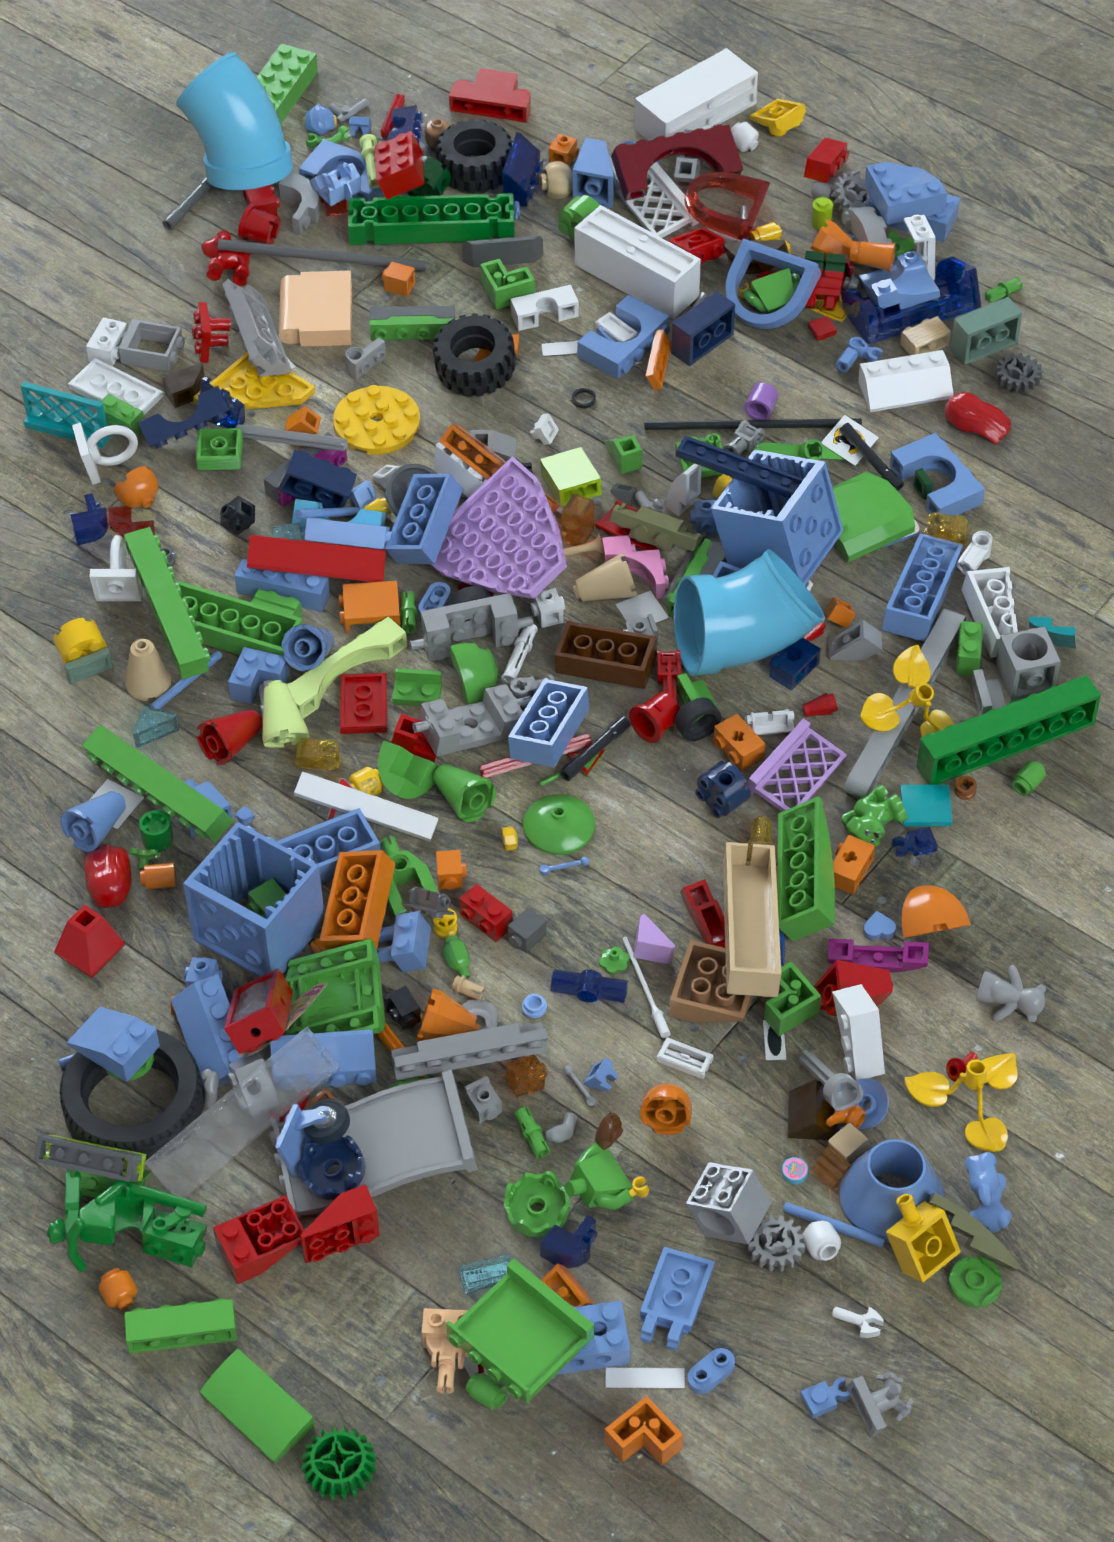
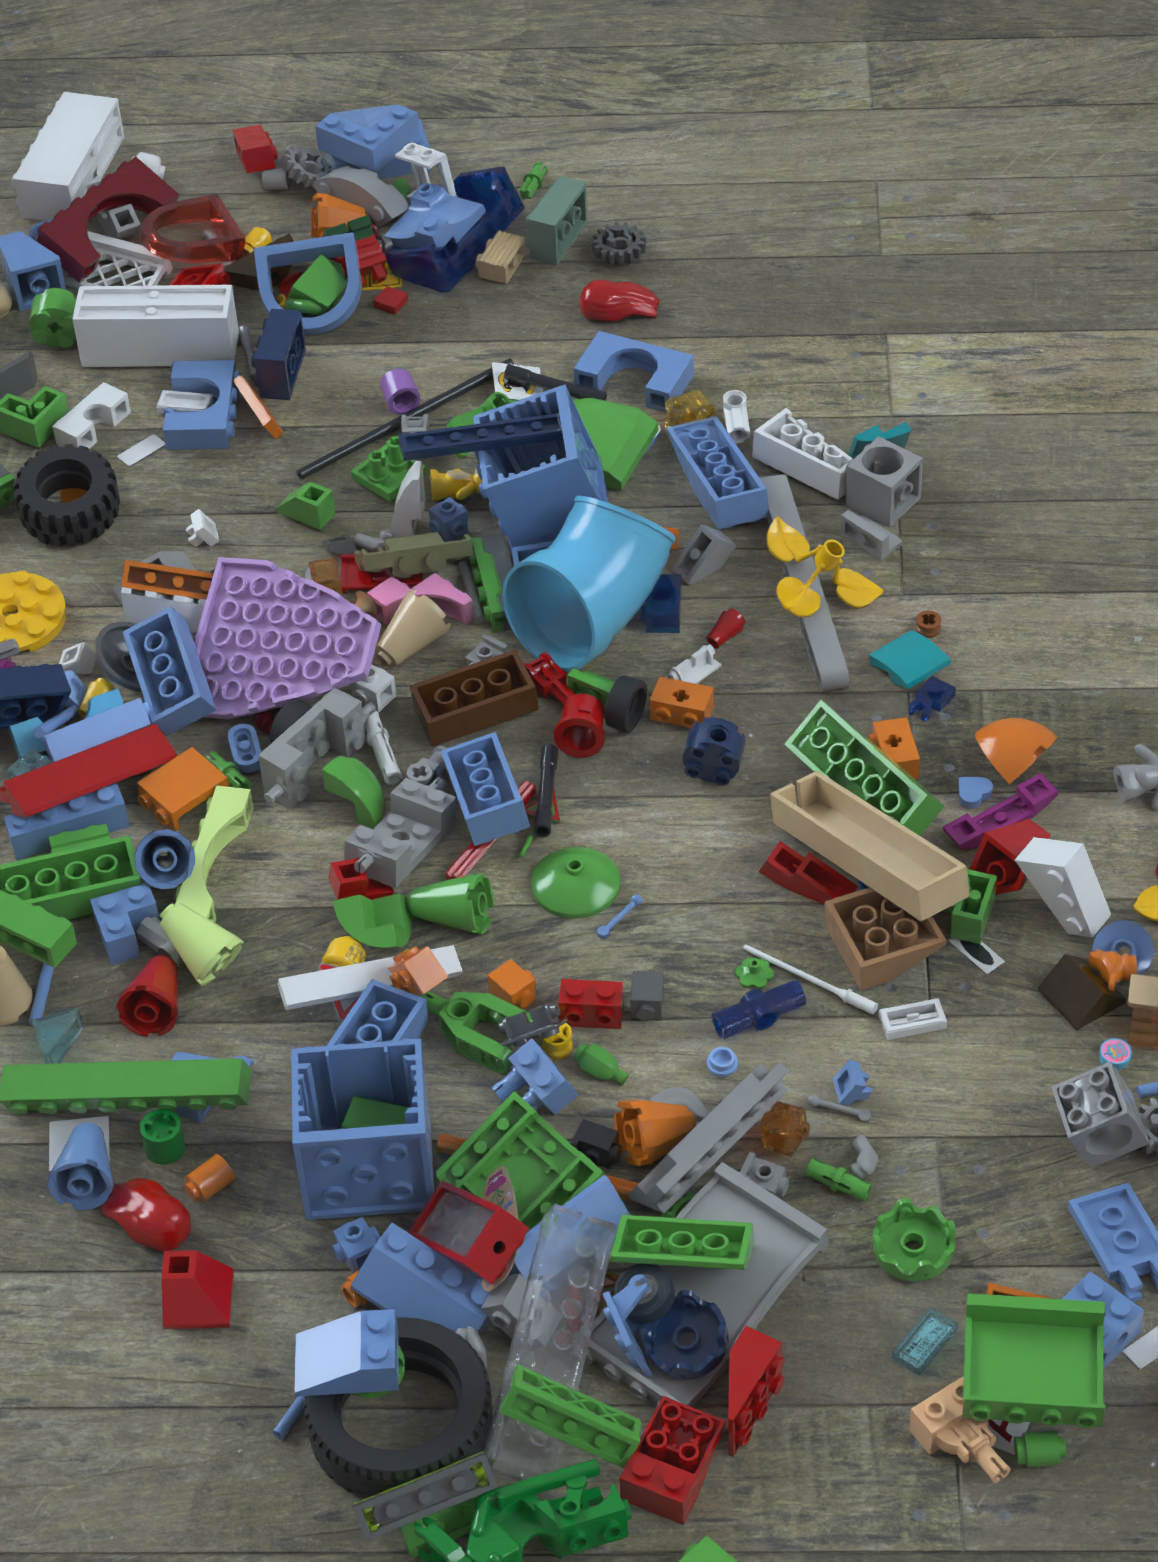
camera: 35 degrees left, 5 degrees down
(144, 856) = (172, 1170): bright green plant -> none
(210, 1170) = (571, 1418): none -> bright green fence
(316, 752) = (263, 961): clear yellow piece -> none
(357, 898) = (457, 1067): orange brick -> none
(363, 703) = (262, 886): red tile -> none
(375, 1106) = (683, 1242): none -> bright green slope
(387, 820) = (416, 971): none -> orange brick
(416, 686) = (306, 838): bright green bracket -> none
(467, 987) = (639, 1086): tan pin -> none
(509, 838) = (543, 922): yellow tile -> none
(569, 1248) = (980, 1262): clear blue brick -> none
(570, 474) = (281, 547): brick -> none
(583, 390) = (209, 474): black piece -> none
(598, 1174) = (950, 1175): bright green torso -> none
(641, 606) = (459, 641): white sticker -> none
(652, 943) = (779, 932): lavender slope -> none
(666, 1109) = (950, 1071): orange cylinder -> none
(760, 833) = (783, 771): clear yellow piece -> none
(779, 116) = (164, 134): yellow slope -> none
(784, 753) = (735, 692): lavender fence -> none
(821, 211) = (293, 198): lime brick -> none
(839, 1089) = (1103, 945): light grey piece -> none
(857, 348) = (443, 302): medium blue bar -> none
(872, 813) = (877, 692): bright green animal -> none
(873, 254) = (391, 203): orange plant -> none
(906, 381) = (520, 303): white slope -> none
(922, 483) = (626, 383): dark green tile -> none
(969, 647) = (814, 501): bright green brick -> none
(1008, 730) = (924, 550): green brick -> none
(1028, 778) = (978, 582): bright green brick -> none

